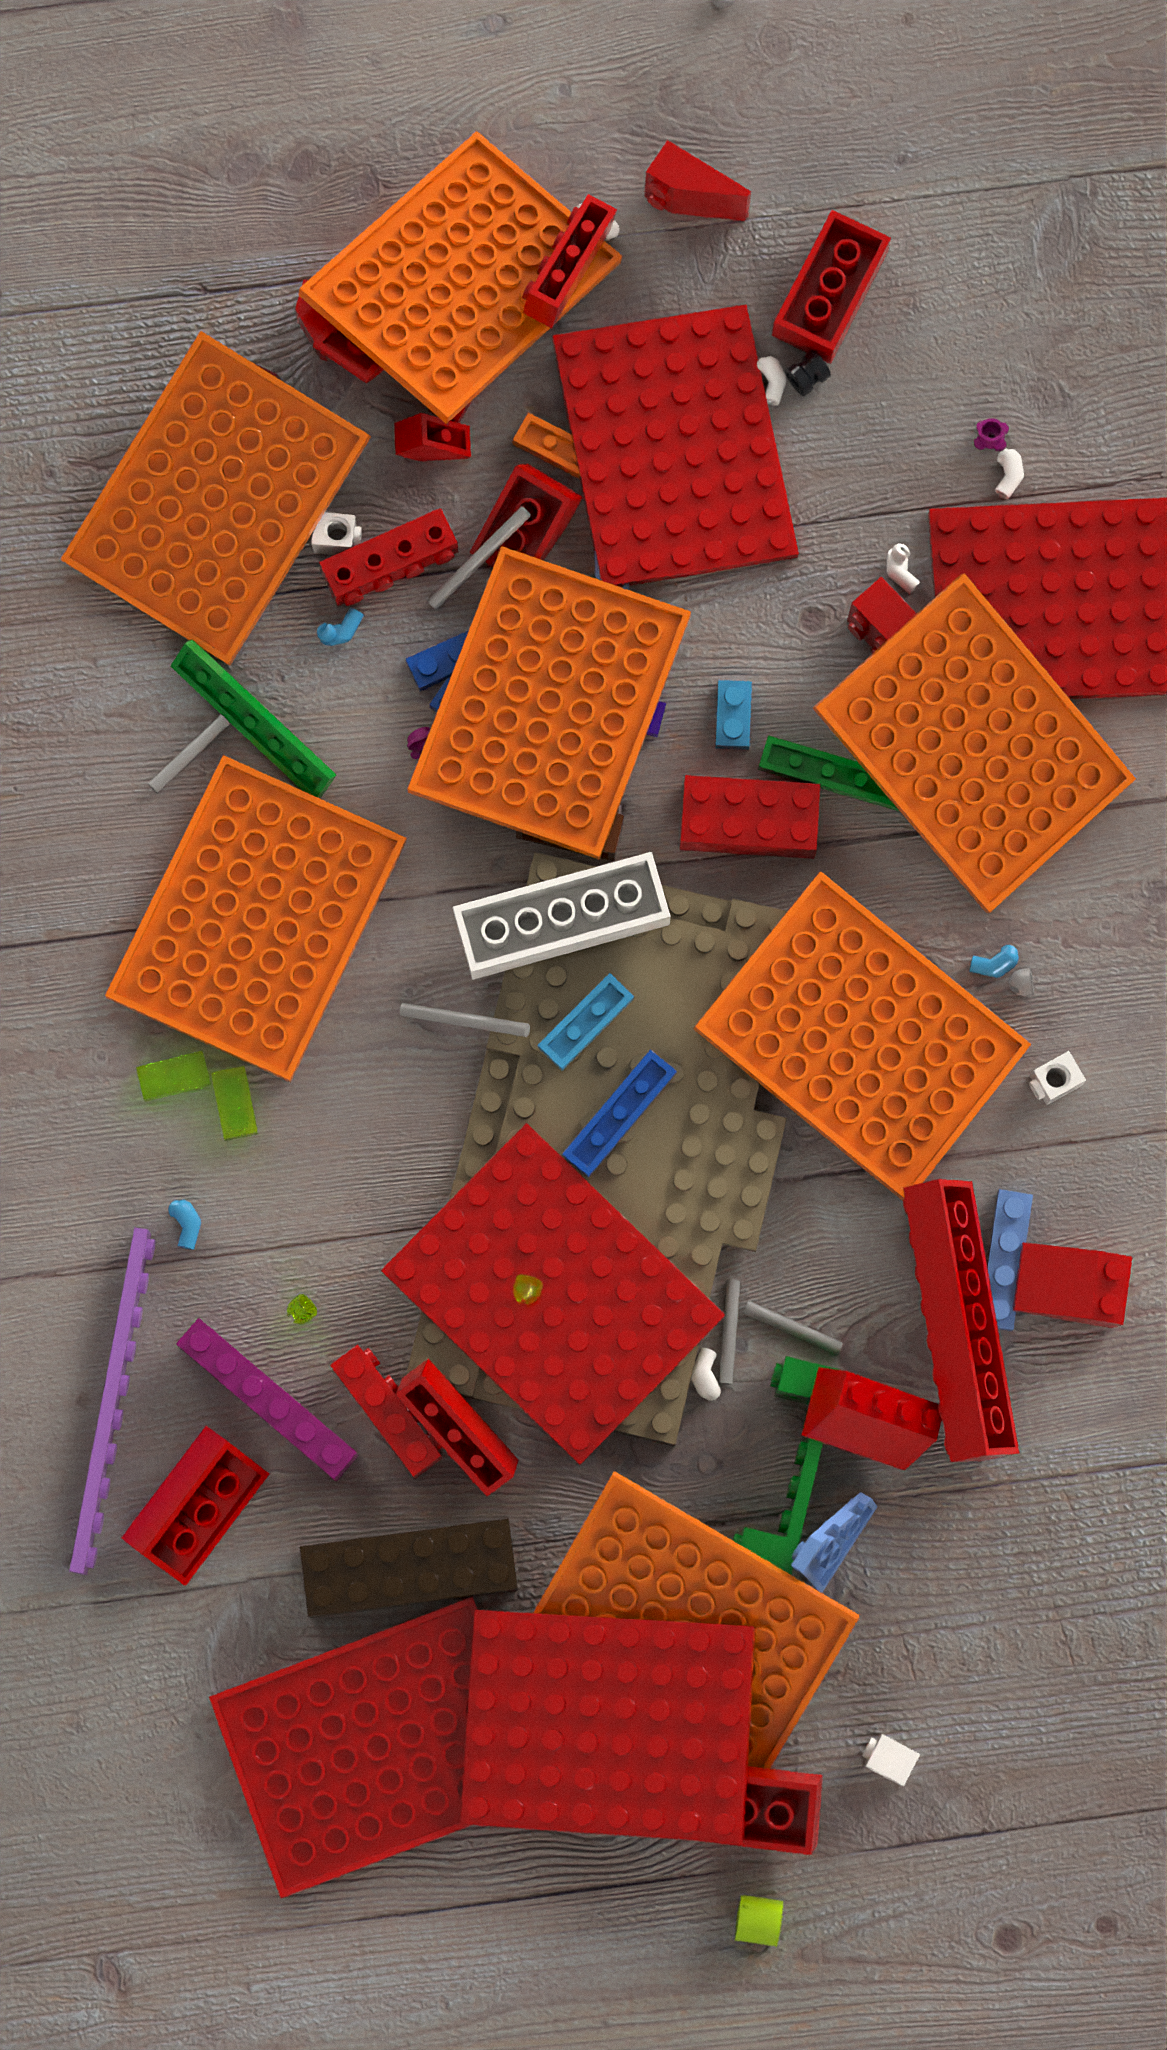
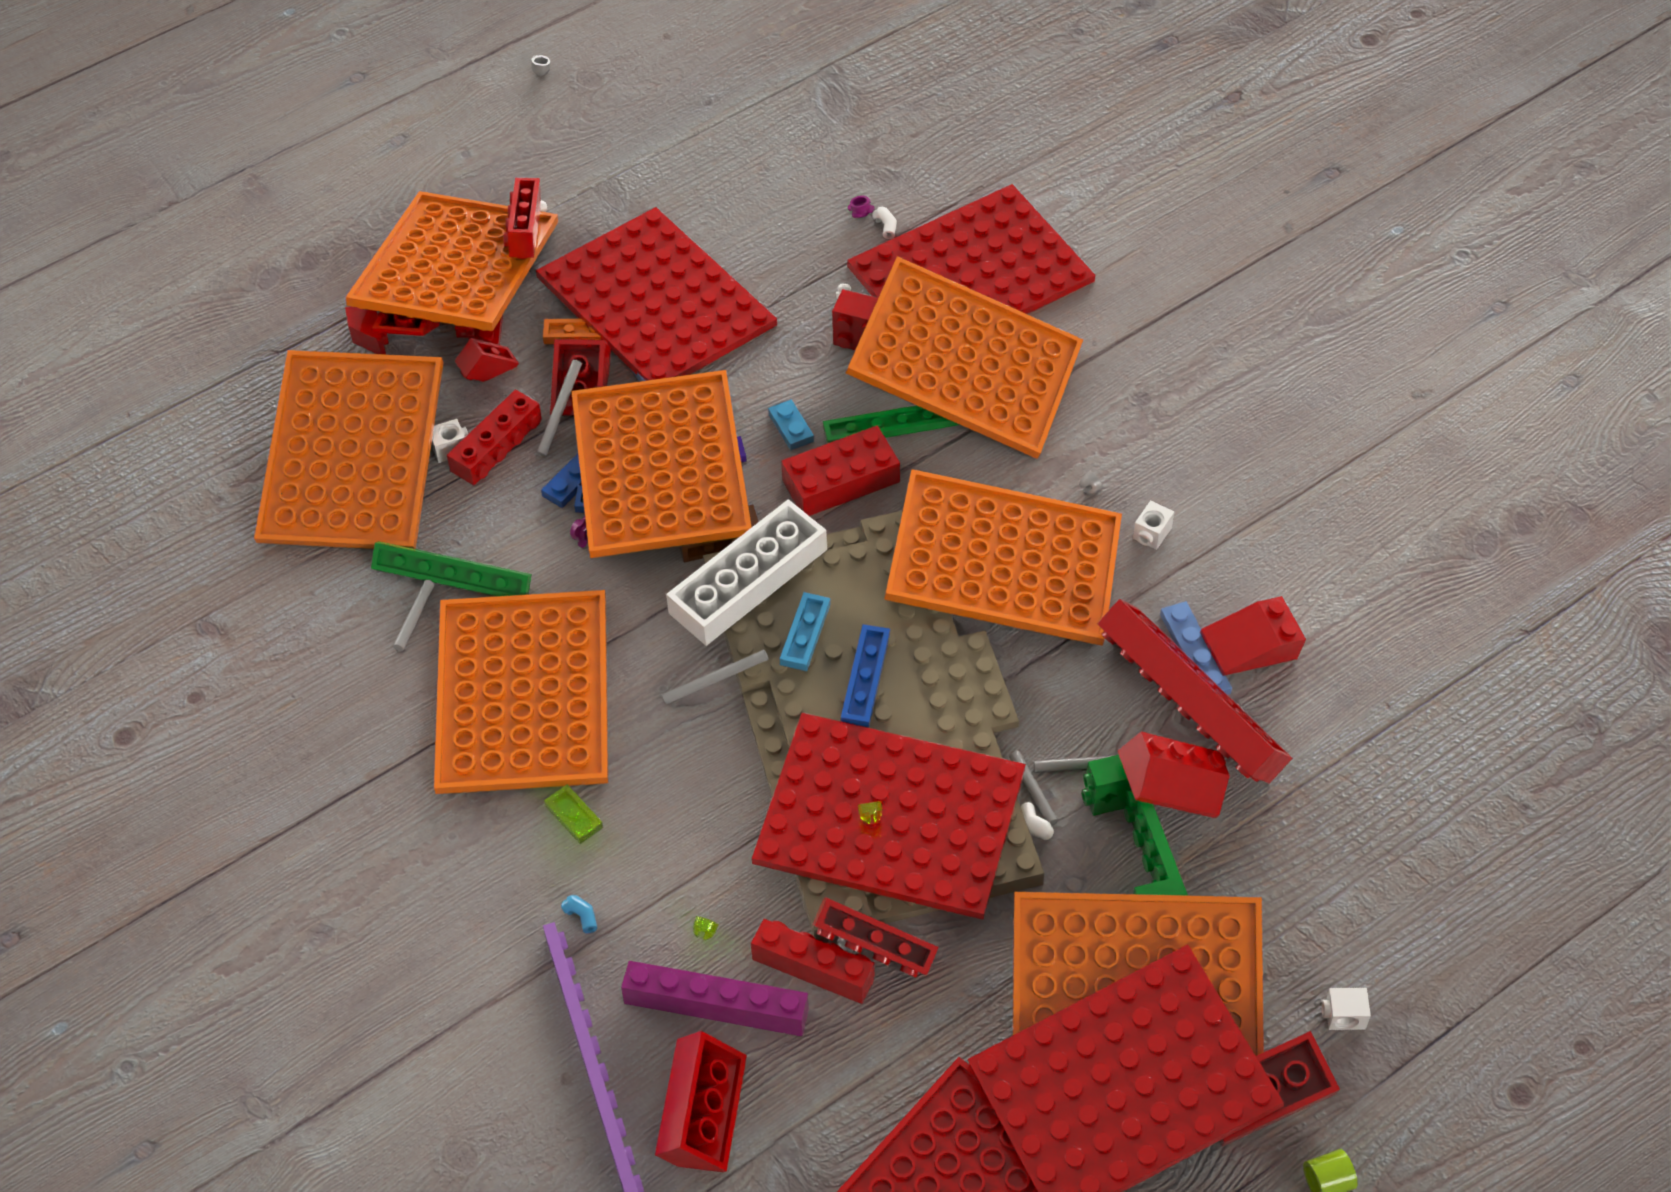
camera: 25 degrees left, 25 degrees down
(173, 1076) = (516, 820): clear neon green plate -> none
(342, 632) = (487, 495): dark azure arm -> none
(408, 1568) = (896, 1062): dark brown brick -> none
(693, 188) = (585, 156): red slope -> none
(776, 377) = (700, 236): white arm -> none
(807, 373) = (716, 226): black wheel -> none
(828, 1545) = (1202, 868): medium blue plate -> none
(831, 286) = (706, 172): red brick -> none
(998, 965) = (1065, 484): dark azure arm -> none

